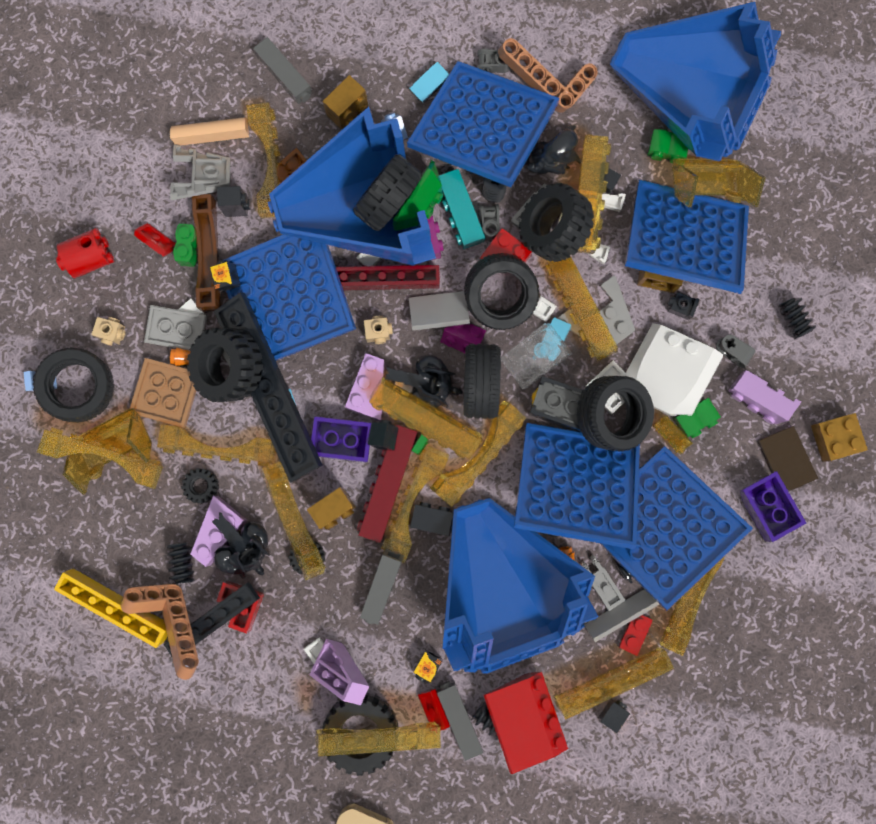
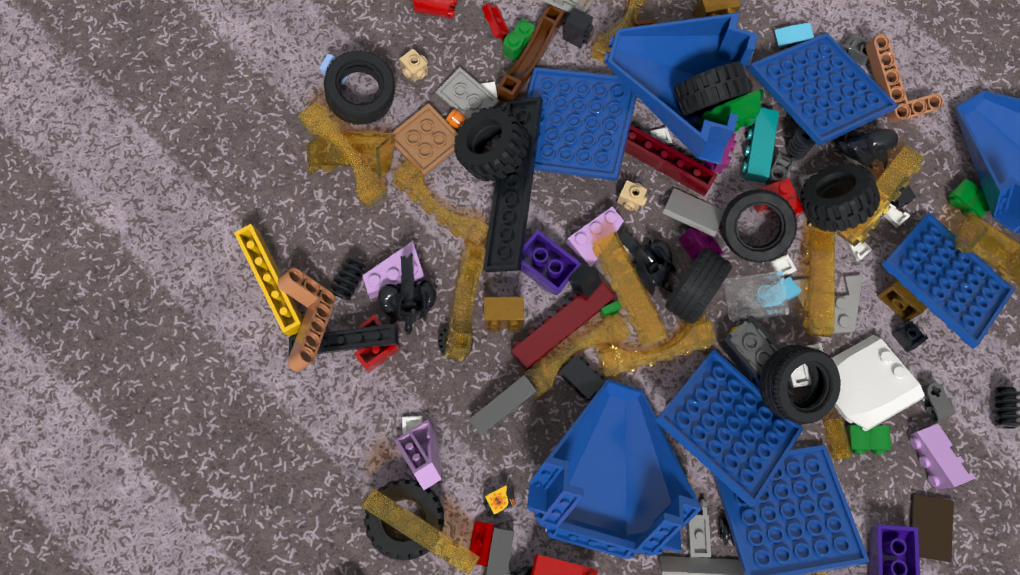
camera: 25 degrees right, 10 degrees down
(189, 481) = (401, 219): black tyre -> none
(225, 276) = (535, 79): brick -> none
(839, 437) = (991, 536): pearl gold brick -> none

